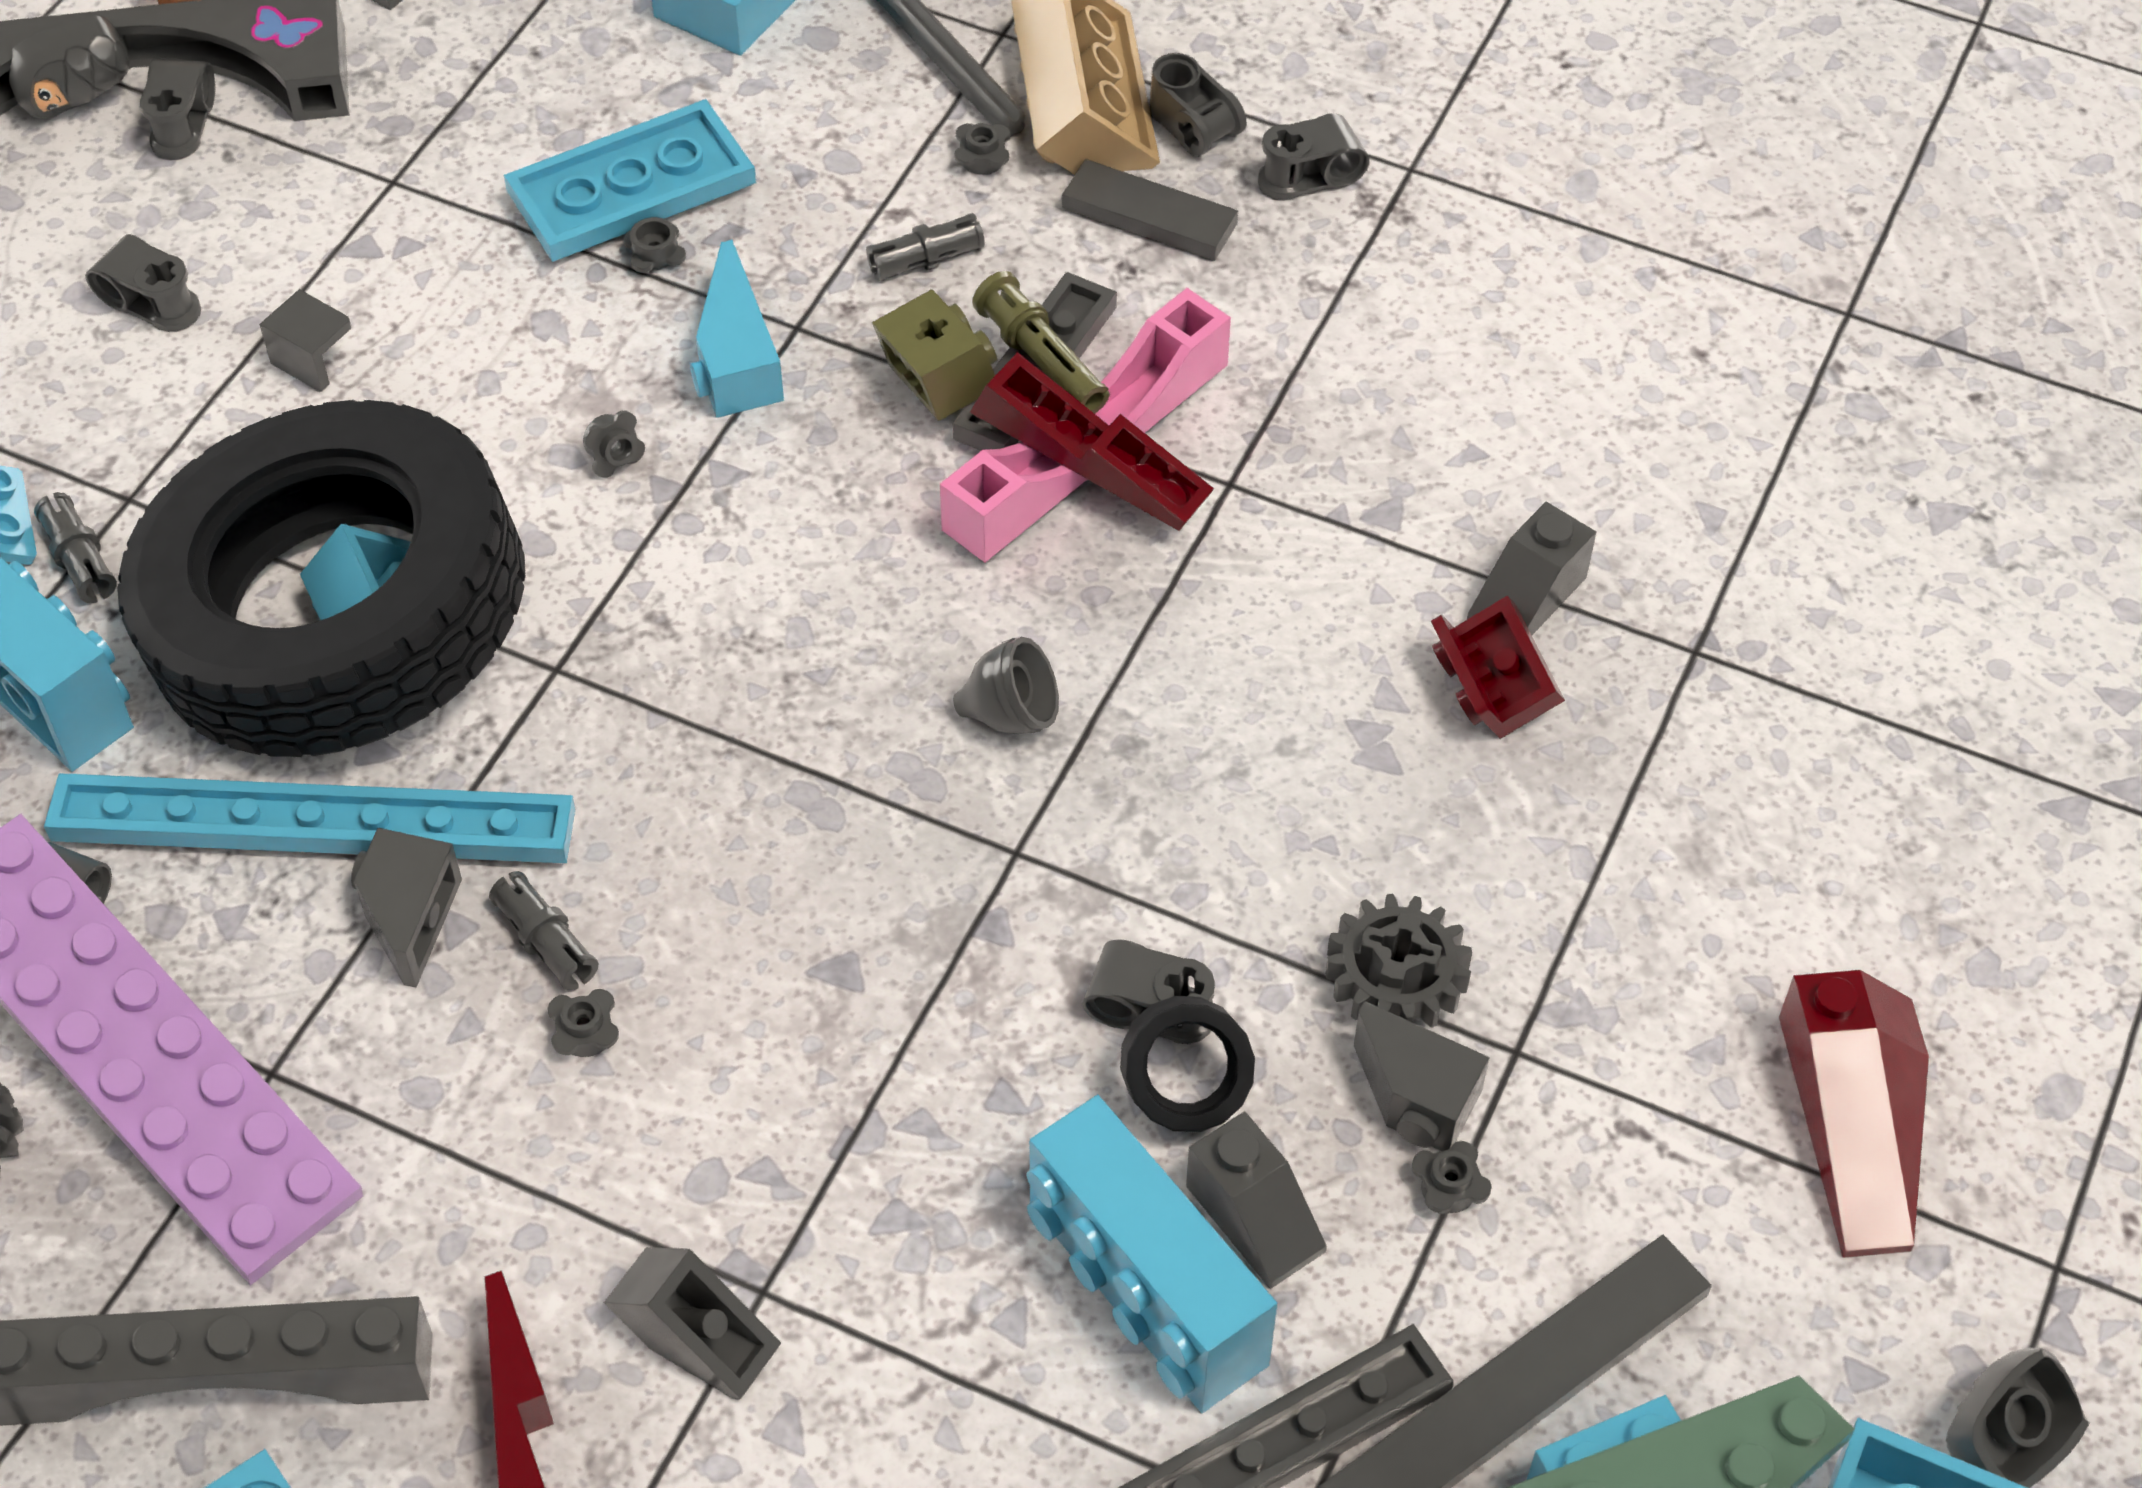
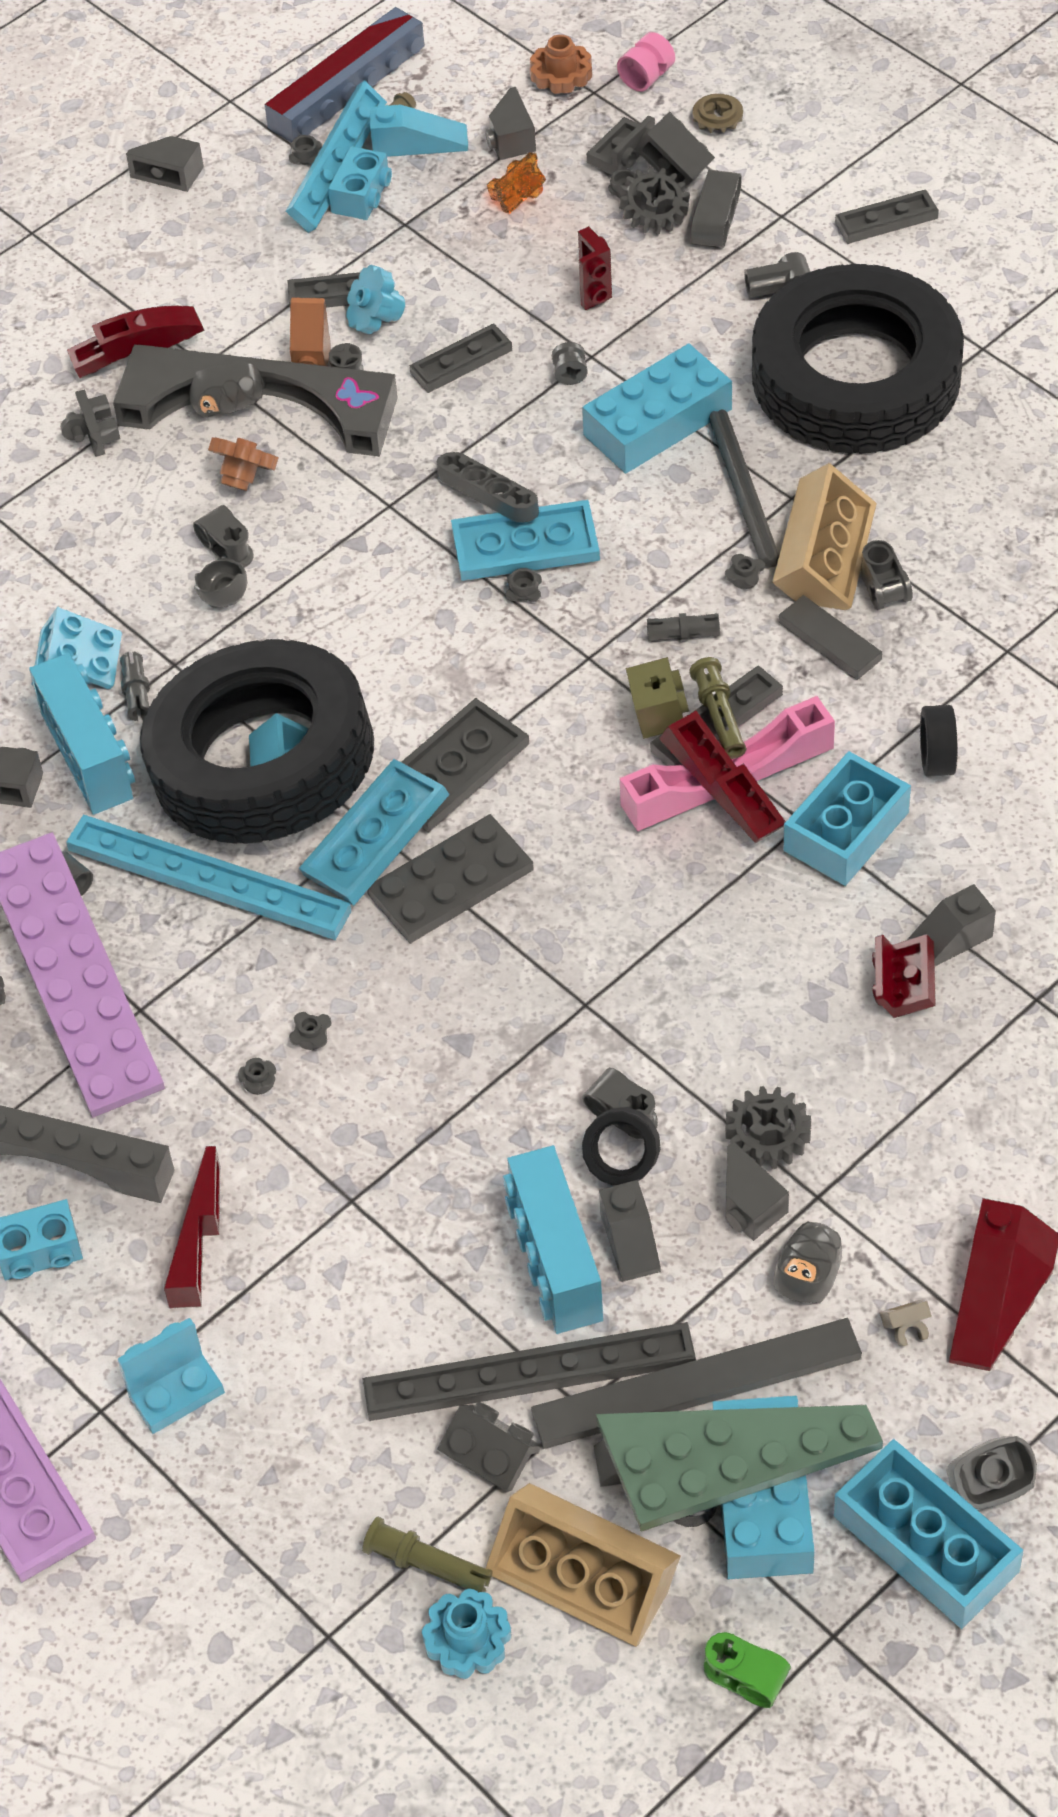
camera: 25 degrees right, 0 degrees up
(132, 163) = (241, 461): none -> nougat plant
(166, 353) = (221, 583): none -> dark grey hair
(177, 105) = (281, 426): dark grey piece -> none
(300, 335) = (300, 590): dark grey panel -> none
(406, 895) = (242, 934): dark grey slope -> none
(526, 1140) = (257, 1083): none -> dark grey plate
(543, 115) = (514, 501): none -> dark grey beam
(543, 930) = (308, 974): dark grey pin -> none
(570, 671) = (374, 831): none -> medium azure plate
(601, 436) = (446, 696): dark grey plate -> none
(650, 538) = (466, 754): none -> dark grey plate
(693, 1319) = (306, 1202): dark grey slope -> none
(716, 714) = (450, 878): none -> dark grey plate
(733, 343) = (543, 658): medium azure slope -> none
(1011, 689) = (618, 910): dark grey helmet -> none
(1304, 457) = (846, 818): none -> medium azure brick
(1315, 153) = (945, 627): dark grey piece -> none
(1387, 310) = (938, 740): none -> black tyre
(1447, 1195) = (744, 1262): dark grey plate -> none
(1557, 1164) = (809, 1263): none -> dark grey piece
(1752, 1203) = (906, 1316): none -> tile

